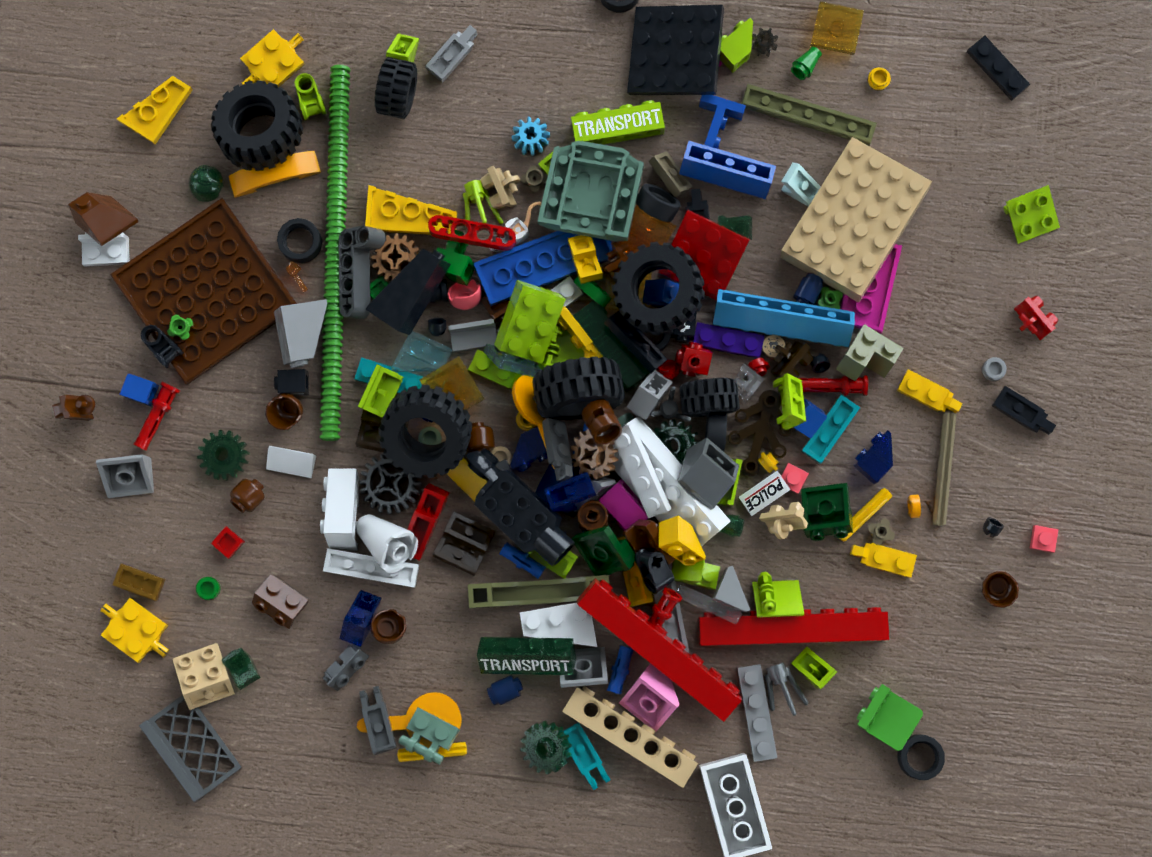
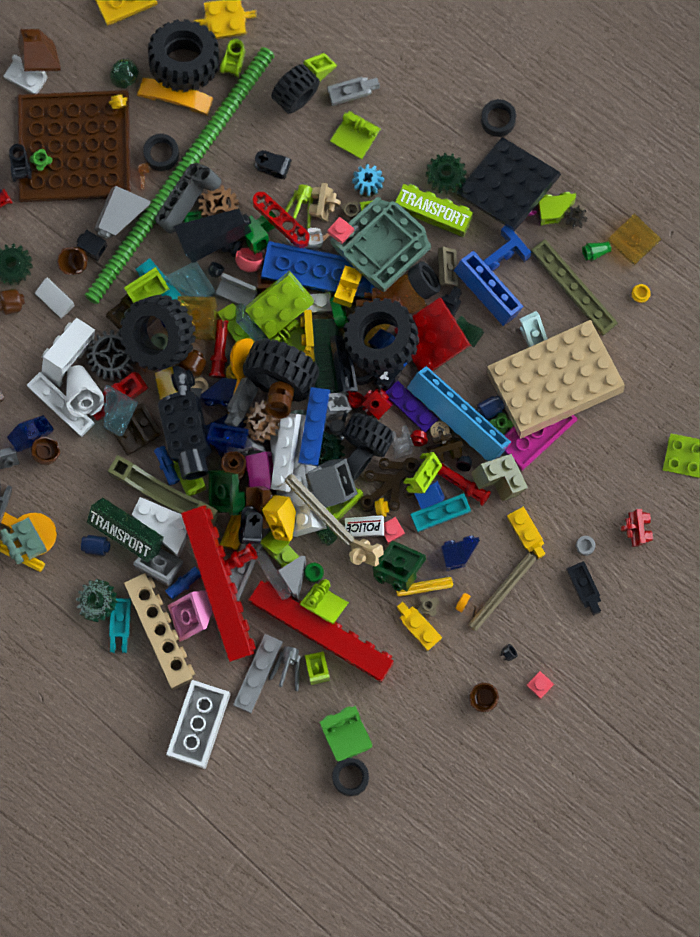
camera: 30 degrees right, 5 degrees down
(220, 216) = (118, 101): none -> yellow plate
(401, 214) = (242, 177): yellow wing -> none
(425, 180) = (274, 165): none -> black piece
(436, 536) = (117, 410): none -> clear light blue wing
(486, 98) = (355, 134): none -> lime hinge
(502, 416) = (219, 358): none -> red pin
(542, 205) = (340, 230): none -> coral plate
(604, 90) = (442, 164): none -> clear green gear
(654, 426) = (314, 426): none -> blue plate
(714, 507) = (315, 505): none -> dark tan axle
(745, 572) = (314, 572): none -> green tile

